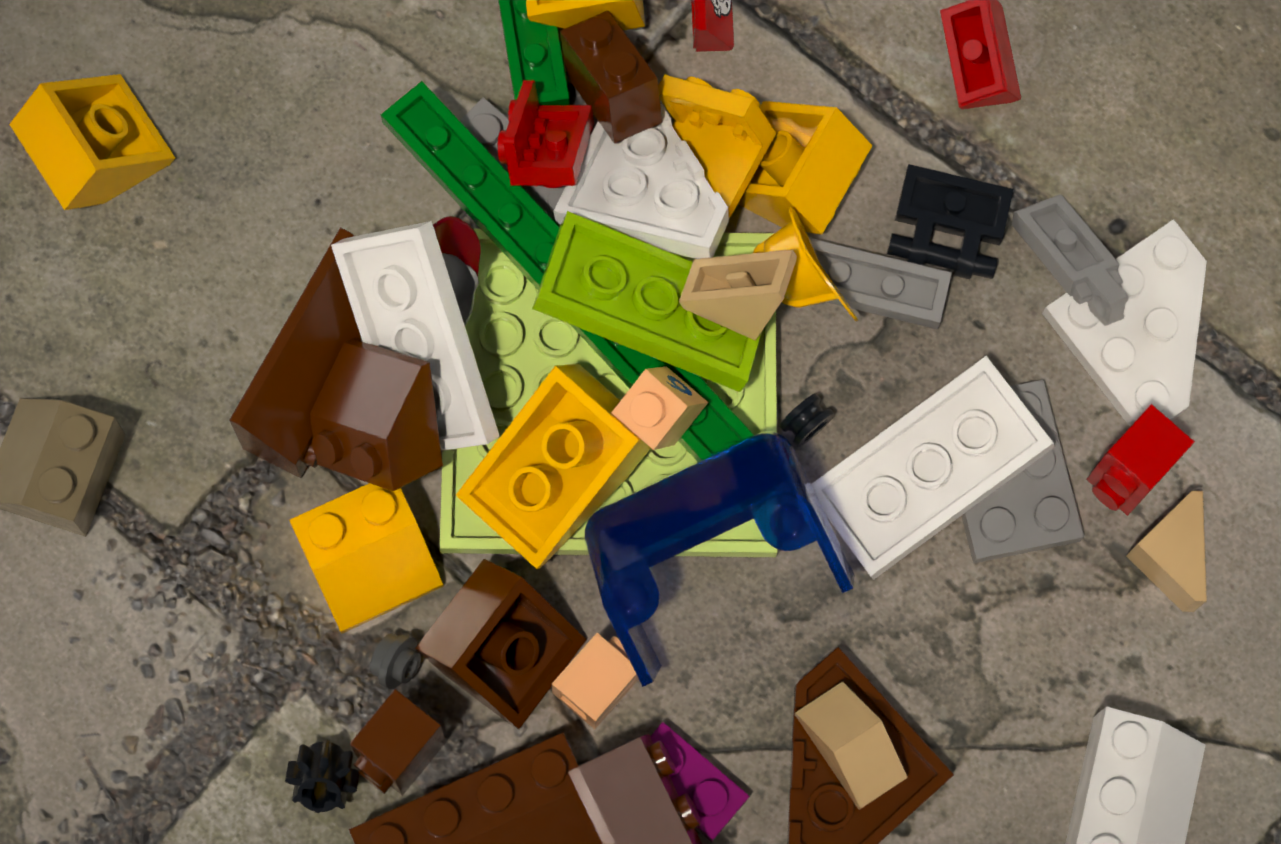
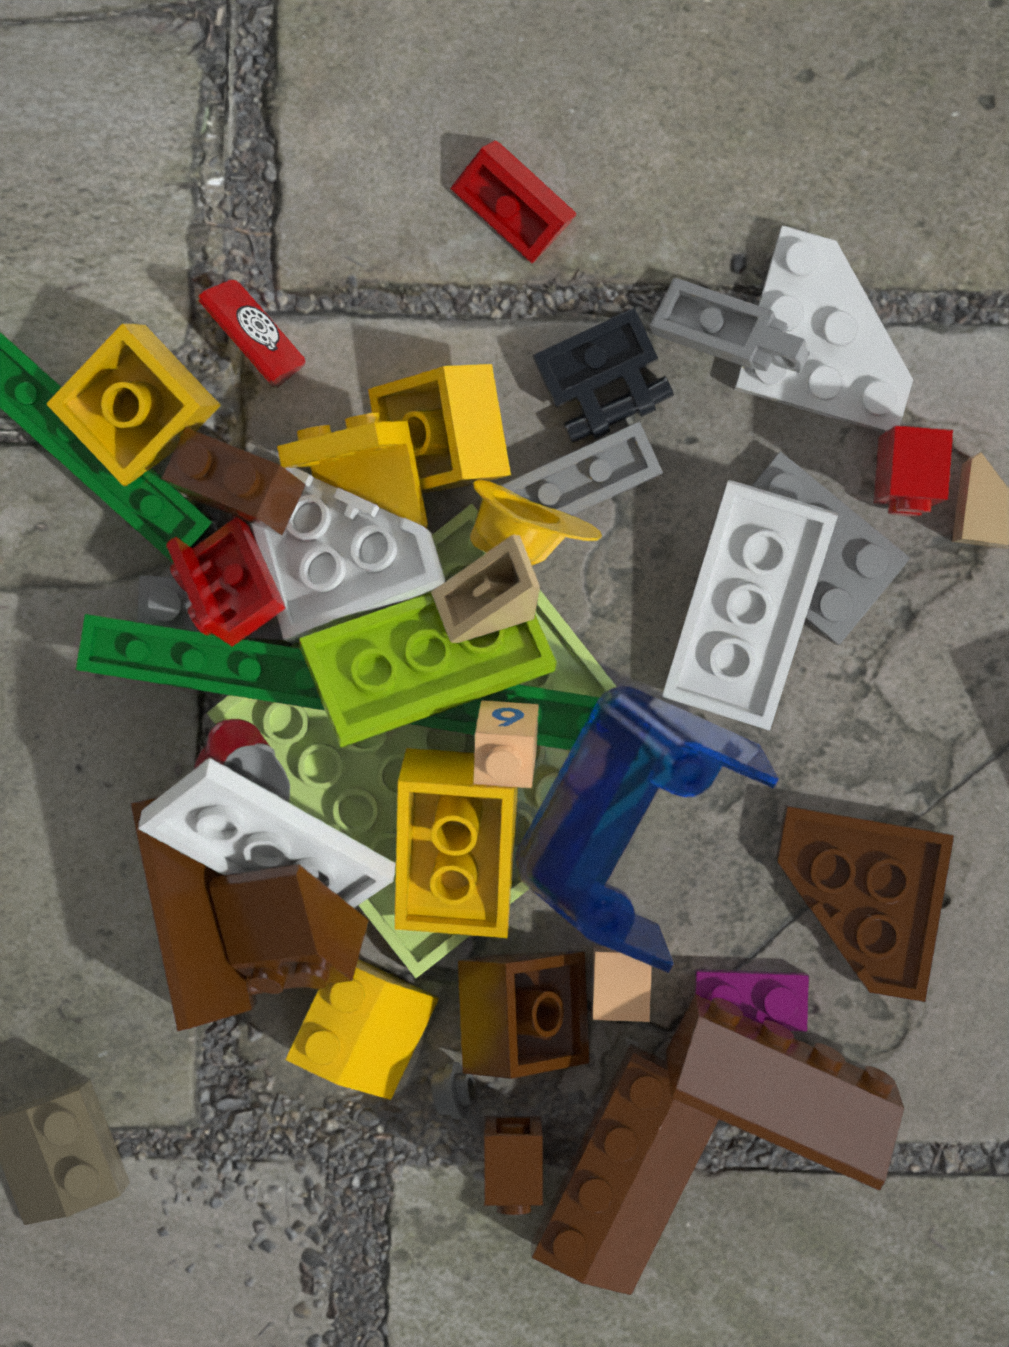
camera: 30 degrees left, 15 degrees up
(322, 776) = (472, 1227): black gear -> none
(806, 420) = (619, 639): black bush -> none
(853, 744) = (858, 878): tan slope -> none

